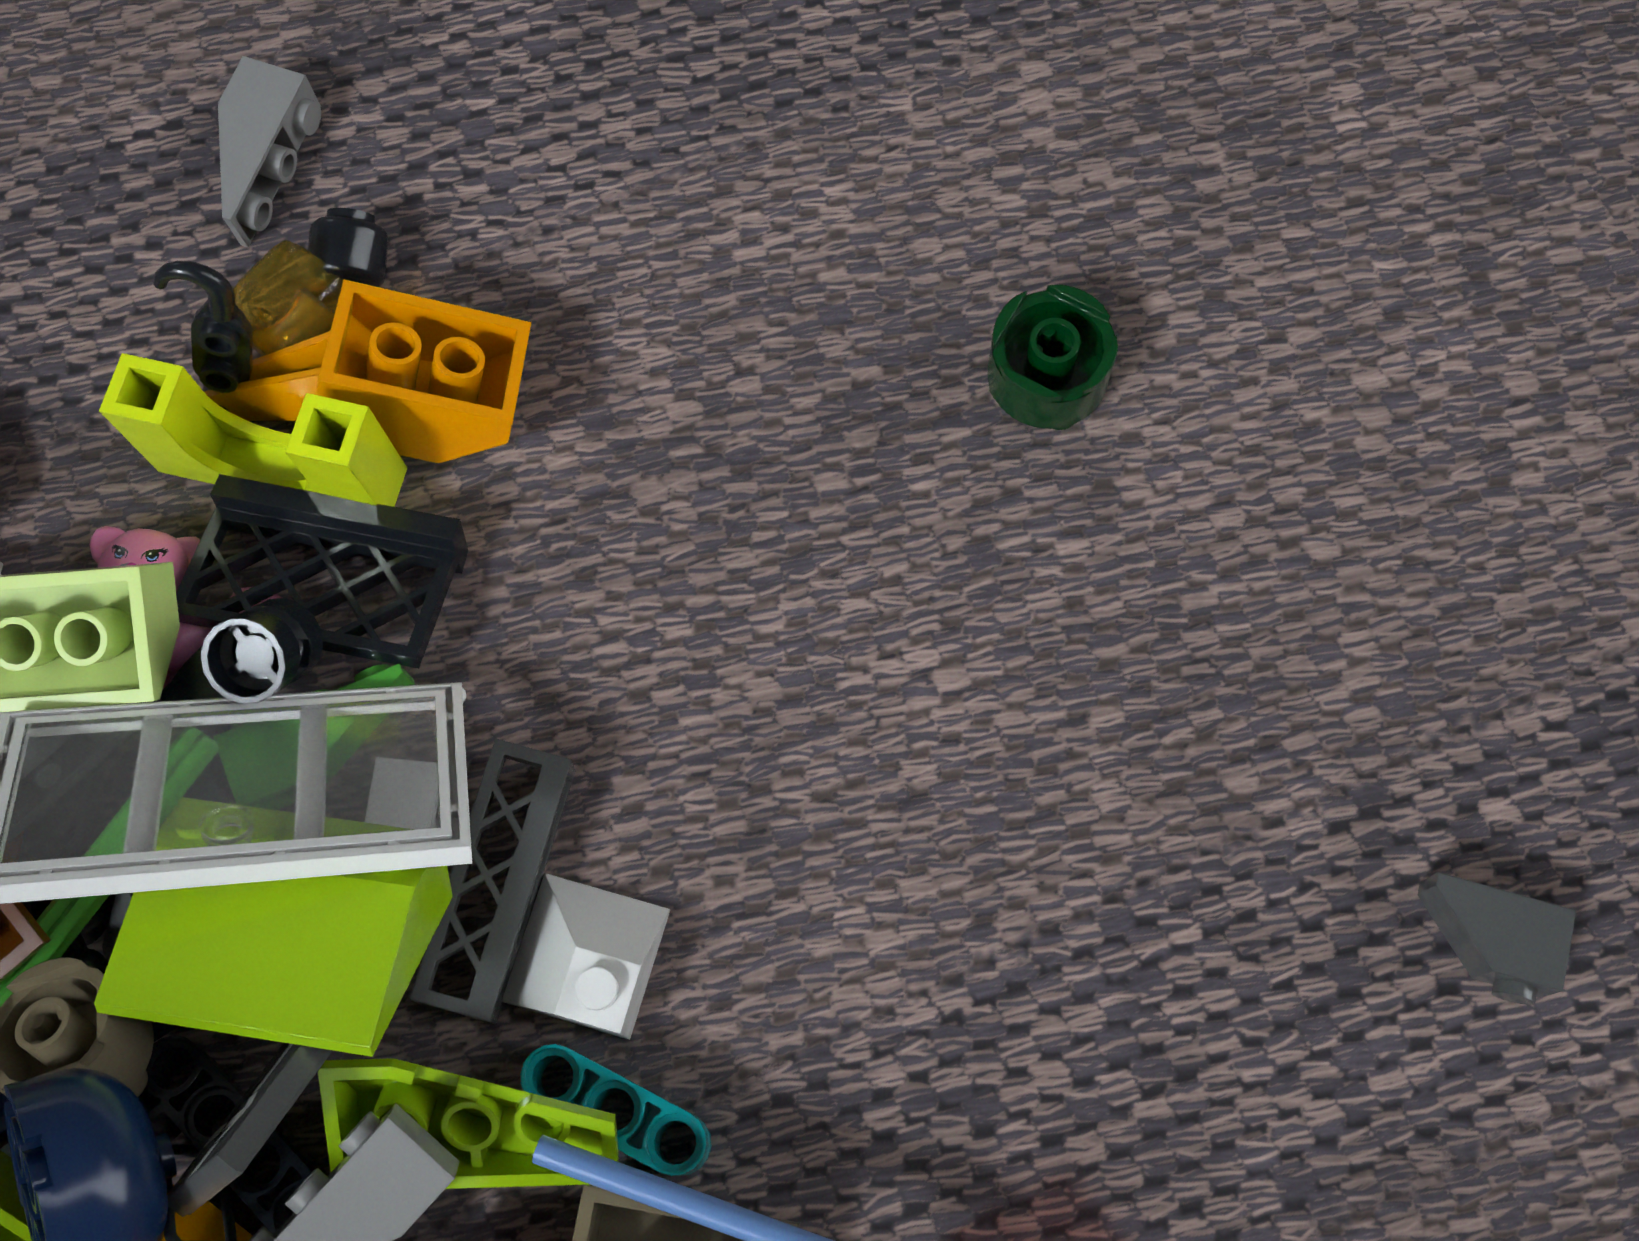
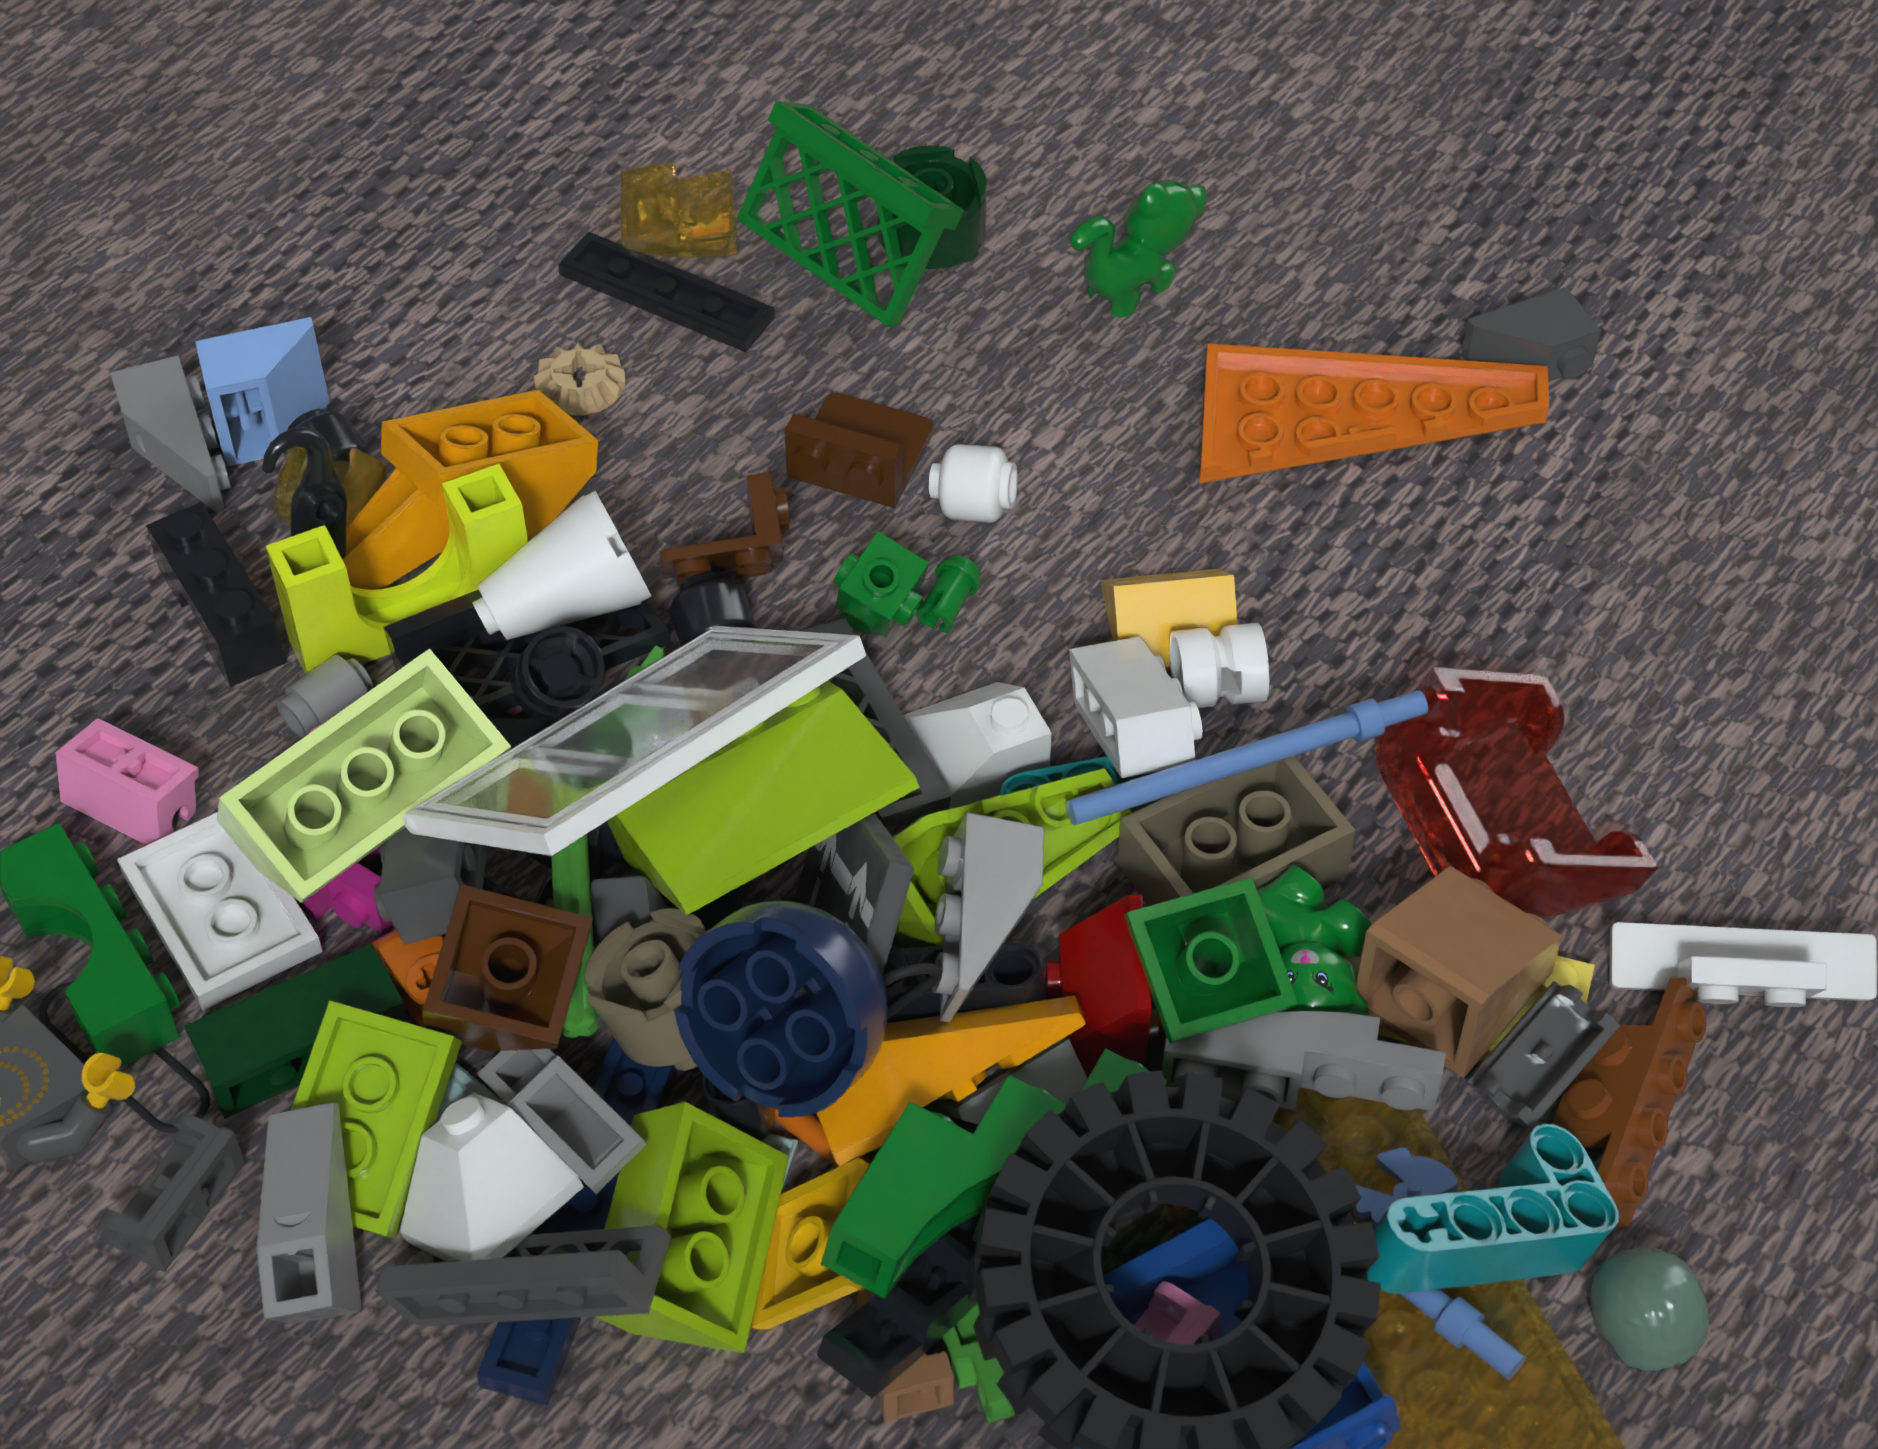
camera: 45 degrees left, 20 degrees down
(140, 315) = (222, 597): none -> black arch
(144, 500) = (323, 693): none -> light grey brick
(330, 154) = (261, 384): none -> light blue slope
(374, 547) = (562, 575): none -> white cone
(489, 661) = (709, 602): none -> black head
(556, 620) = (747, 555): none -> reddish brown bracket
(618, 341) = (599, 390): none -> tan gear
(639, 743) = (880, 586): none -> green brick
(705, 786) = (954, 583): none -> green pin
(714, 1066) = (1134, 706): none -> white brick
(765, 277) = (667, 291): none -> black tile
(768, 570) = (857, 448): none -> reddish brown bracket
(822, 690) = (974, 483): none -> white head
(843, 198) = (678, 215): none -> clear yellow slope
(849, 1066) = (1221, 665): none -> white wheel
(872, 965) = (1169, 602): none -> yellow slope
(992, 305) = (875, 177): none -> green fence
(1201, 553) = (1153, 227): none -> green animal
(1220, 843) = (1312, 406): none -> orange wing

